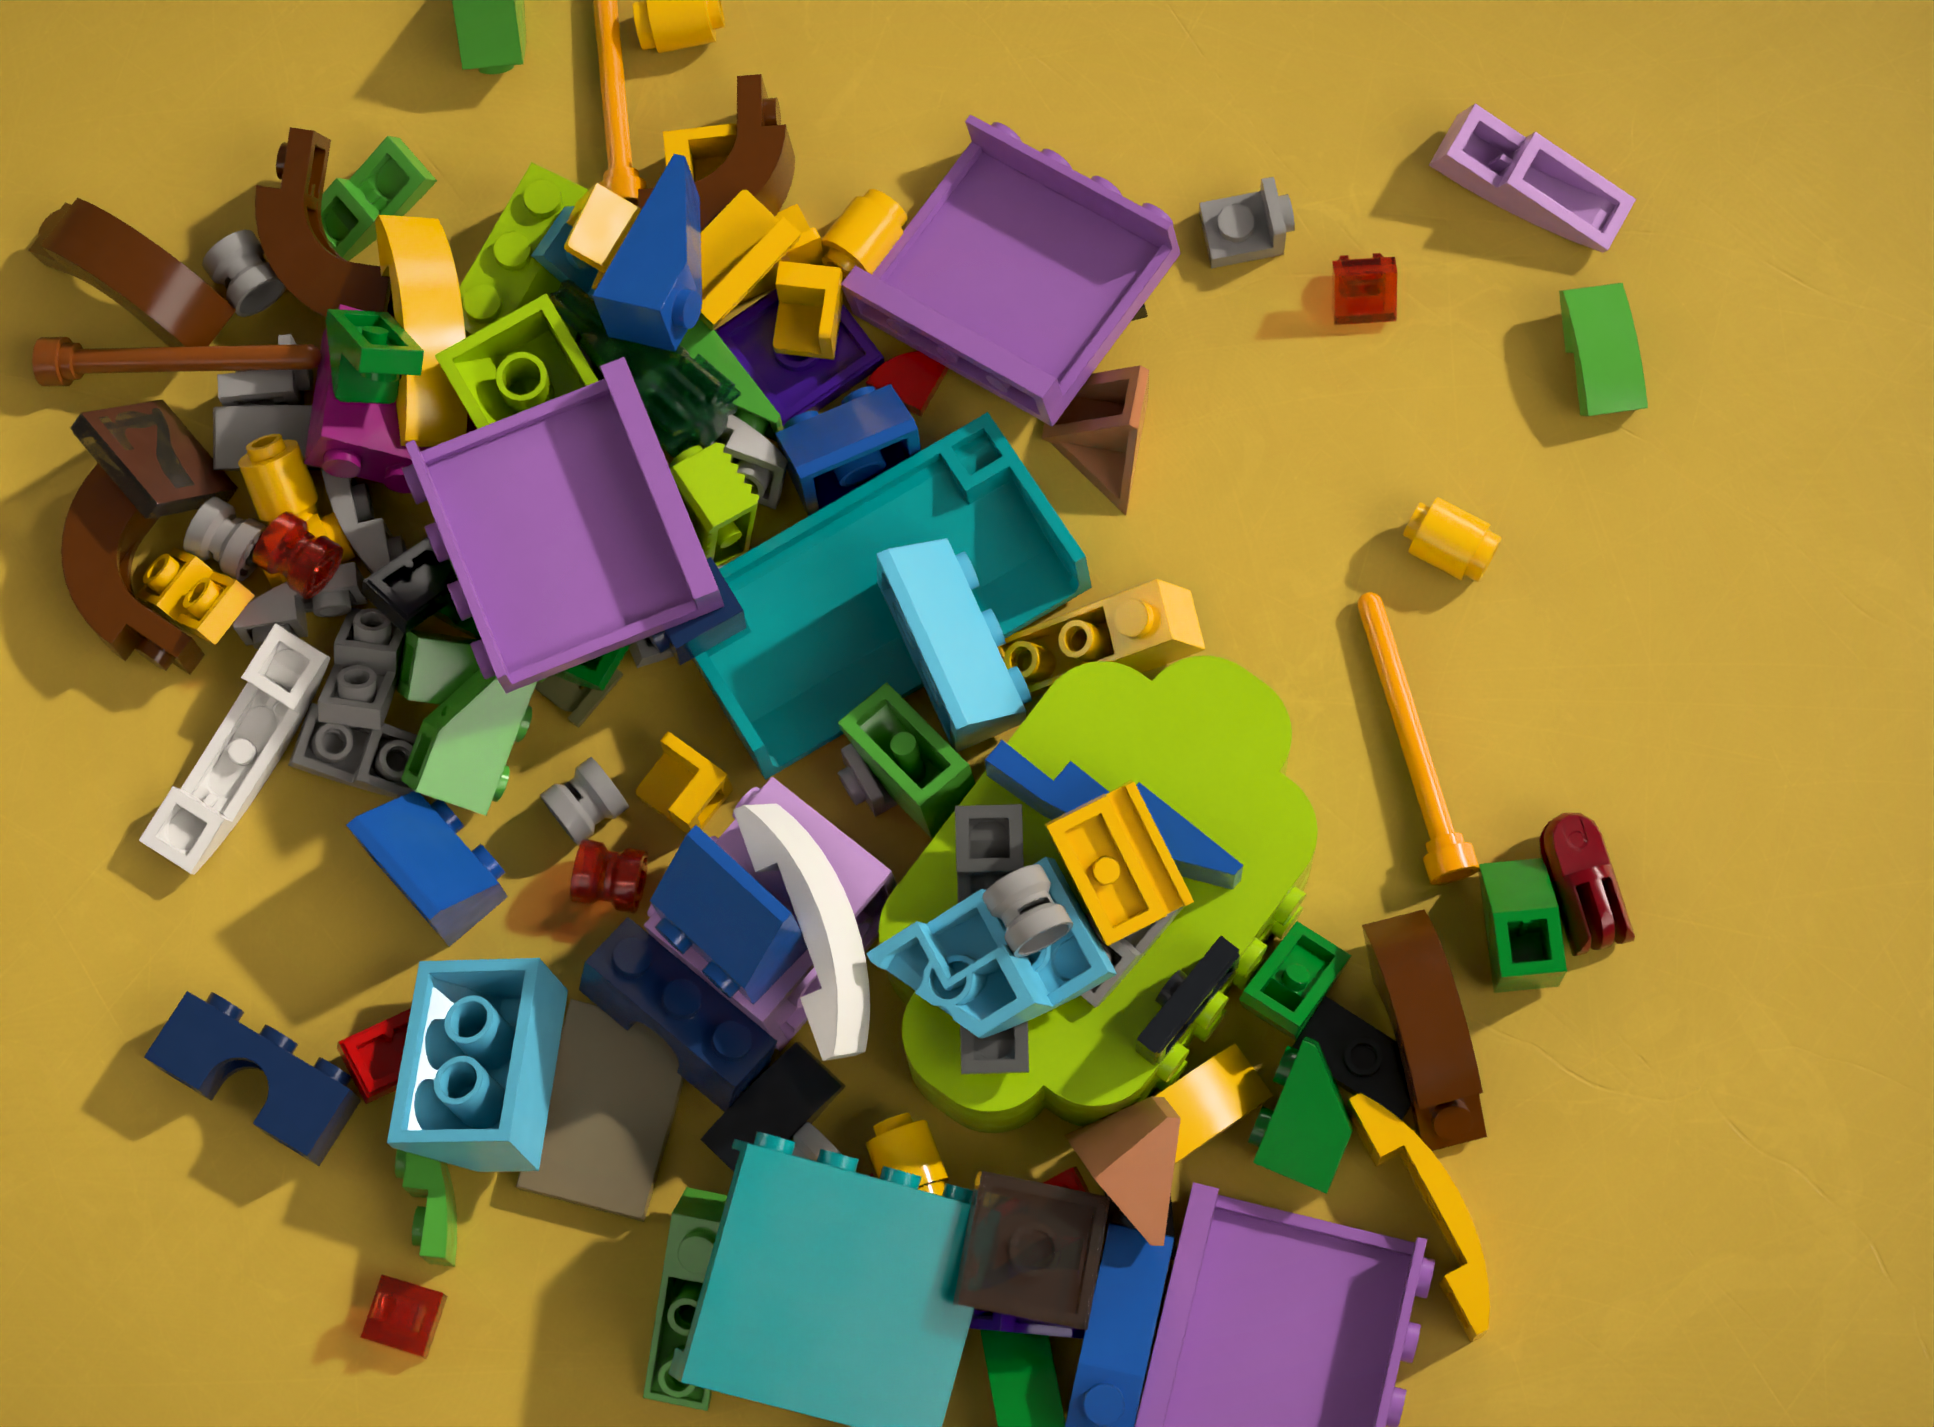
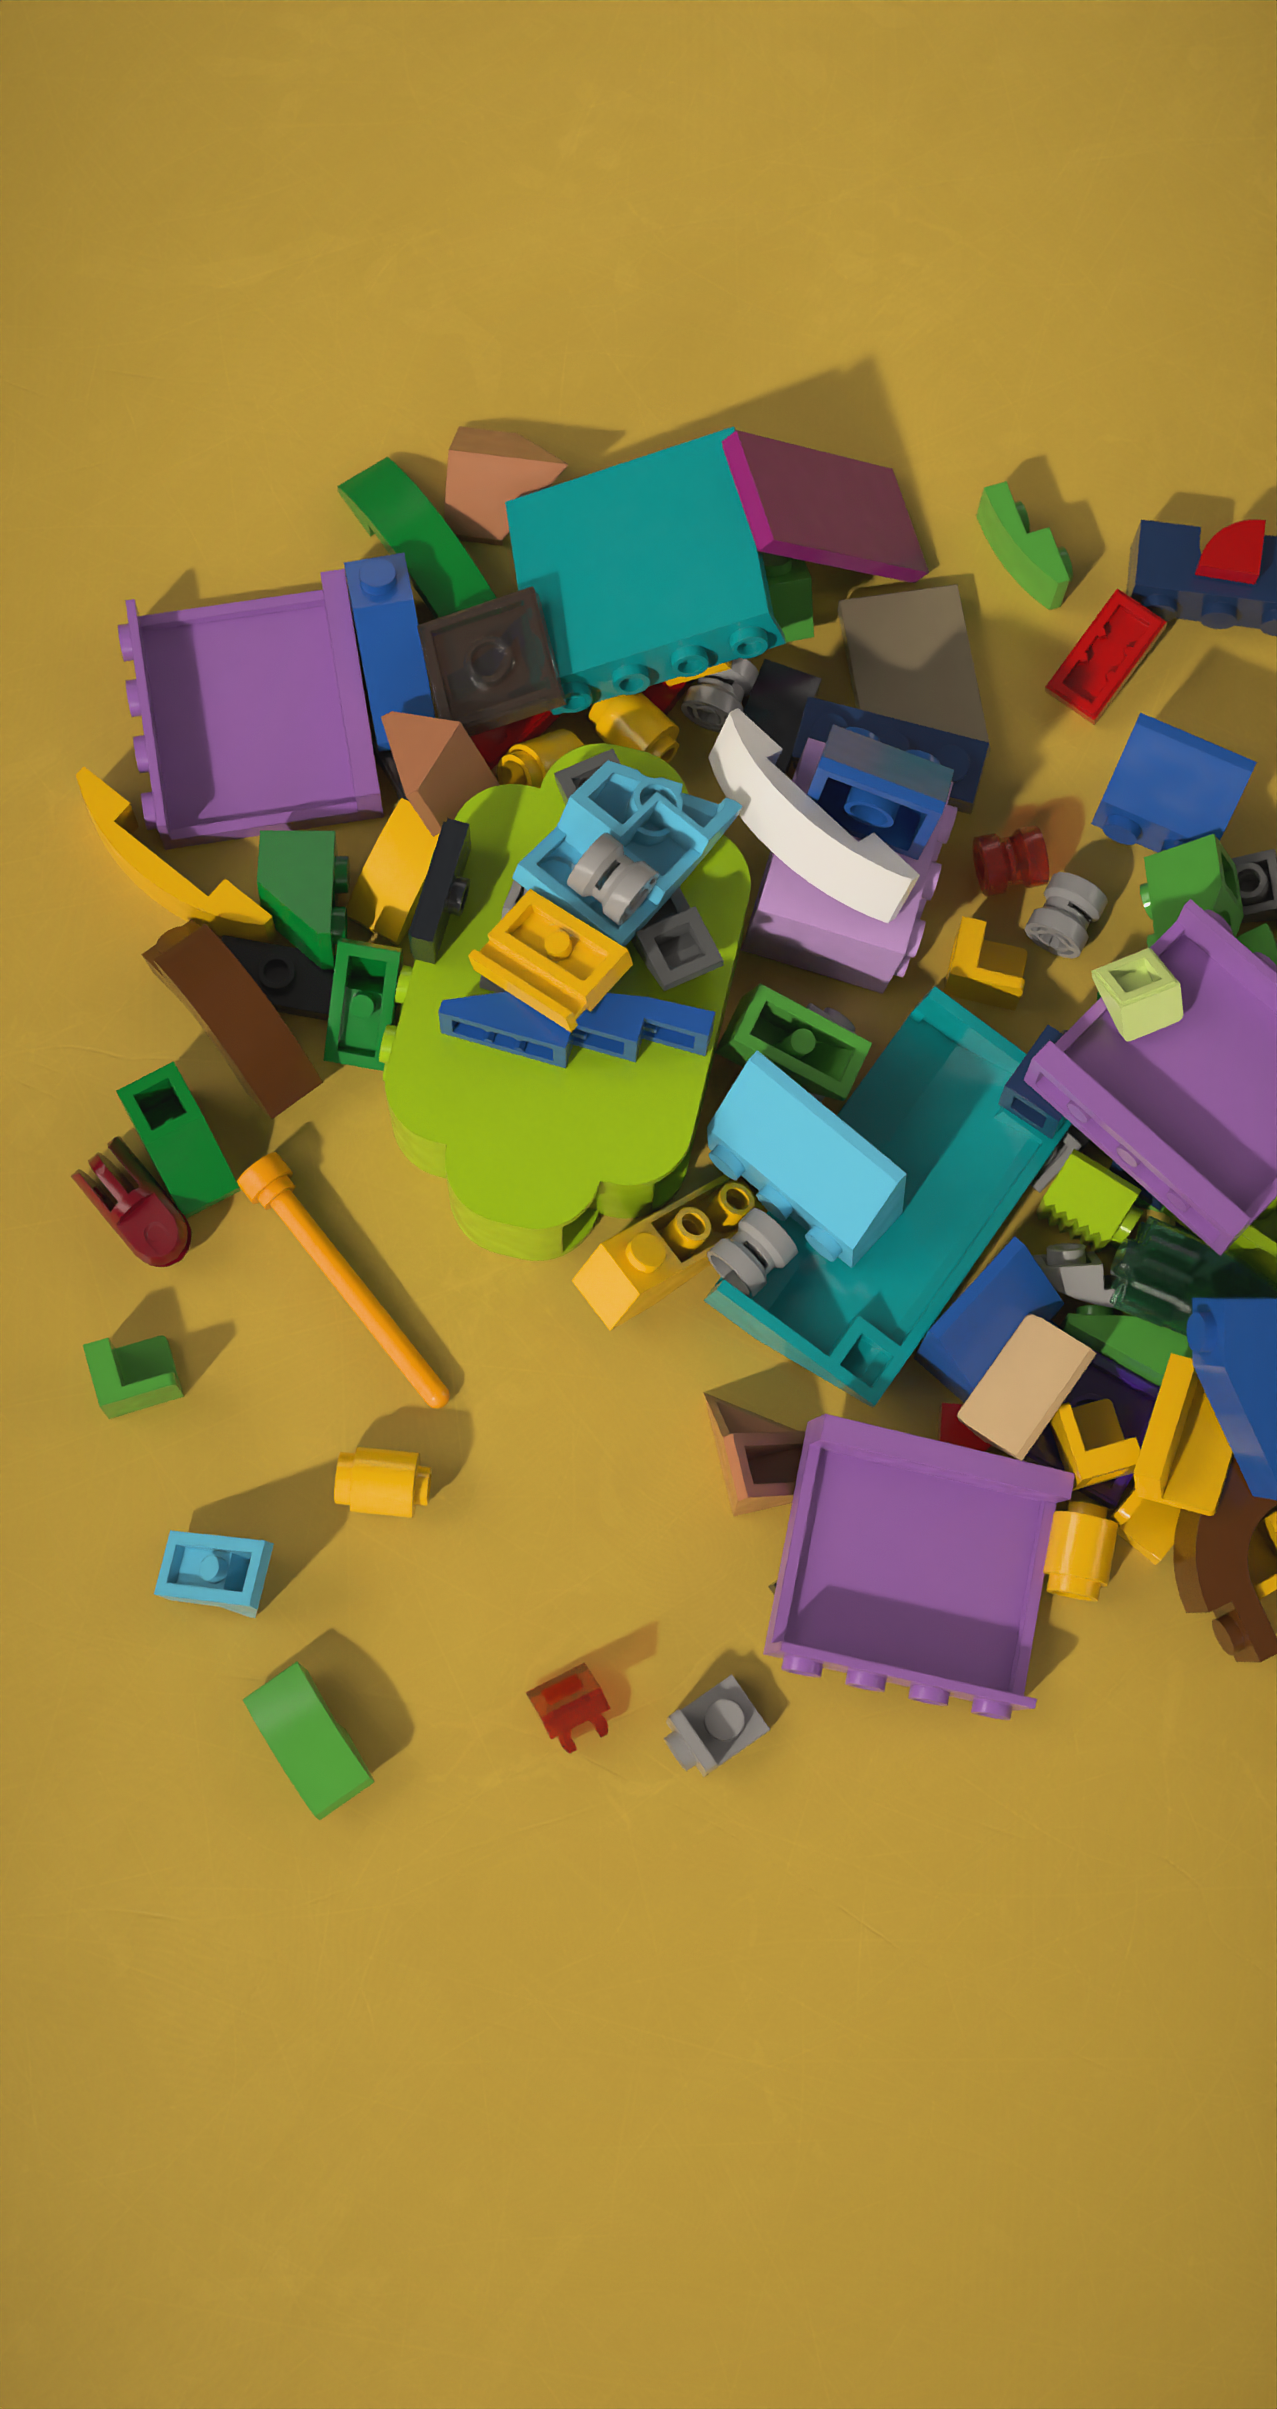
camera: 145 degrees right, 0 degrees up
(237, 1073) = (1234, 552): none -> red tile
(404, 1316) = (996, 455): clear red tile -> none
(479, 1063) = (1037, 646): medium azure slope -> none
(585, 626) = (1139, 994): none -> yellowish green slope
(622, 1282) = (824, 508): none -> magenta tile
(847, 368) = (1025, 1386): none -> tan slope
(1019, 596) = (752, 1252): none -> light grey wheel
(1020, 1148) = (532, 759): none -> yellow brick
(1532, 179) = (447, 1896): lavender slope -> none
(1631, 515) = (214, 1571): none -> medium azure slope
(1641, 729) = (132, 1375): none -> bright green panel

